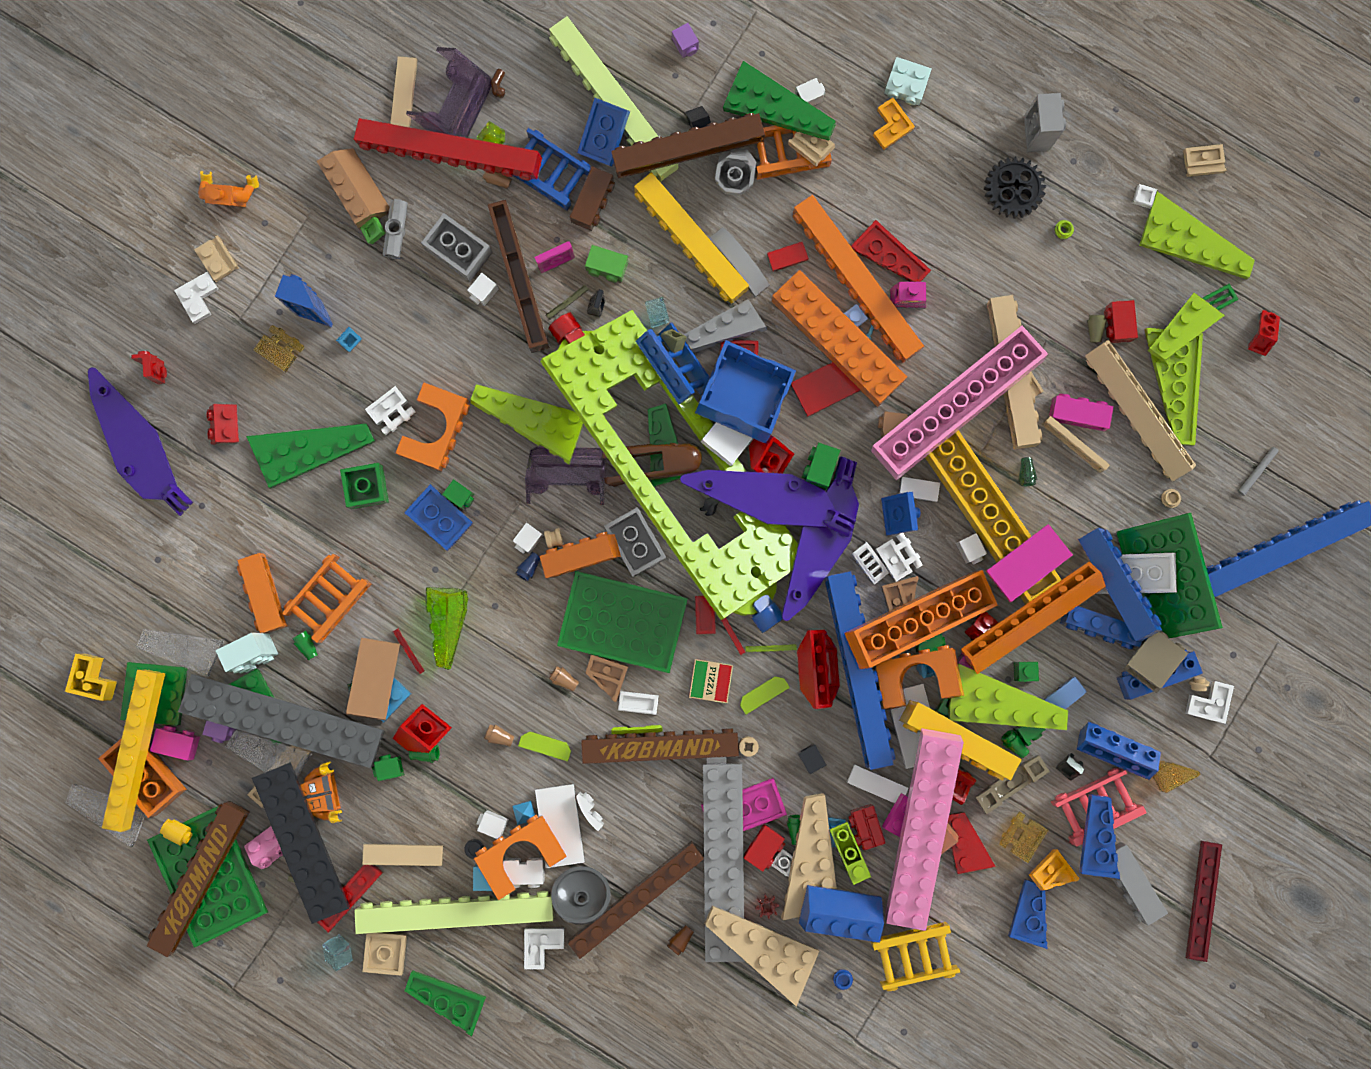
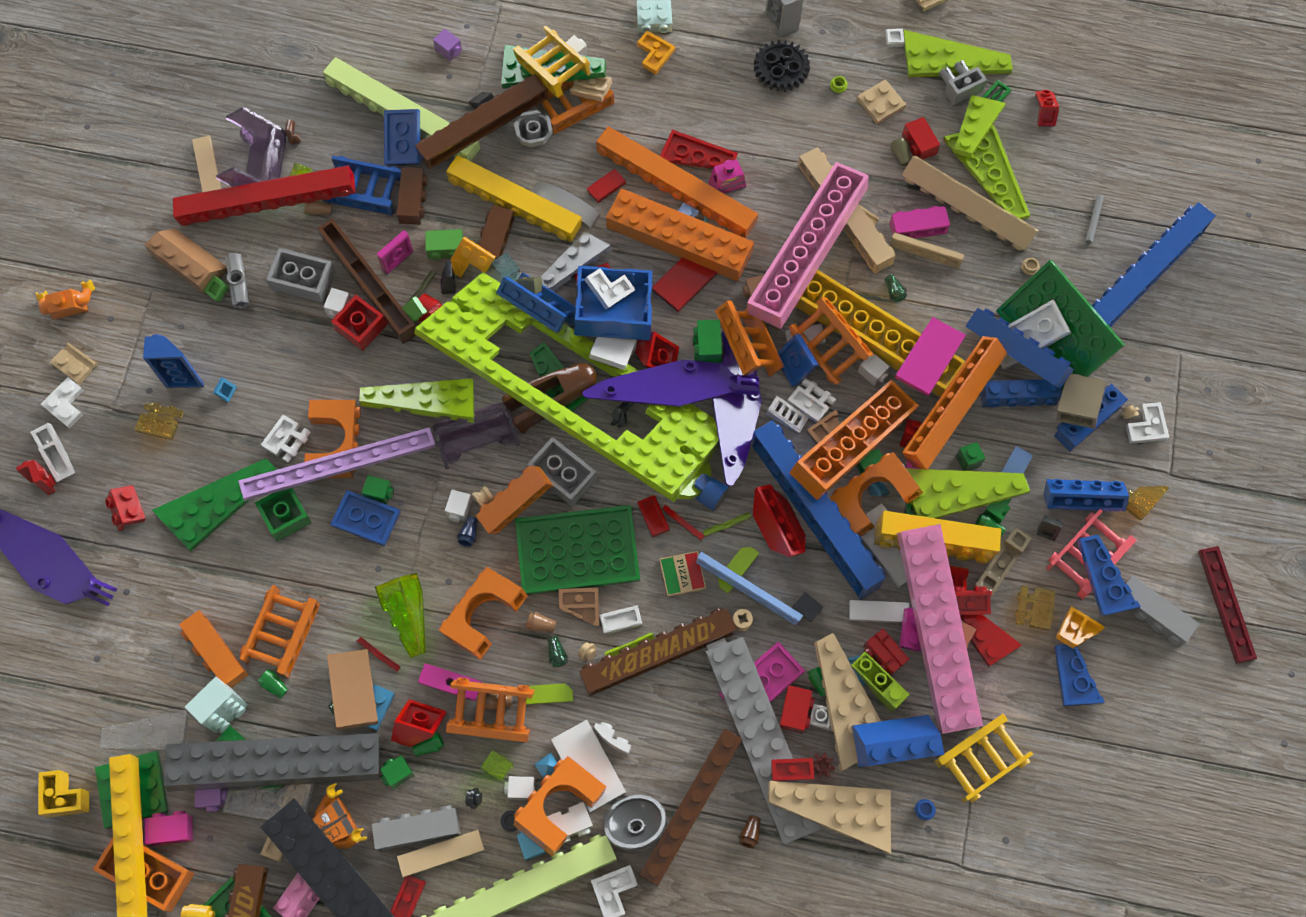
camera: 20 degrees left, 15 degrees down
(172, 344) = (53, 452): none -> white slope
(388, 825) = (416, 829): none -> light grey brick
(427, 459) = (336, 464): none -> lavender plate
(448, 817) = (473, 798): none -> black plate
(453, 695) = (438, 679): none -> dark pink tile
(478, 797) = (497, 765): none -> clear neon green panel
(482, 761) = (478, 726): none -> orange fence
(488, 655) = (487, 587): none -> orange arch
(496, 318) = (359, 322): none -> red brick
(552, 328) = (414, 309): none -> bright green tile
(568, 713) = (557, 654): none -> clear green cone
(596, 722) = (587, 652): none -> tan plate
(625, 285) = (470, 253): none -> light orange plate
(658, 271) = (497, 230): none -> reddish brown brick
(737, 903) = (792, 769): none -> red plate
(743, 378) = (608, 292): none -> white plate
(765, 720) = (748, 588): none -> light blue tile
(767, 118) = (534, 66): none -> yellow fence
(851, 478) = (740, 344): none -> orange fence
(958, 513) = (849, 336): none -> orange fence
(966, 812) = (973, 601): none -> red bracket
(1099, 264) = (881, 102): none -> tan plate
(1191, 280) = (963, 86): none -> light grey brick

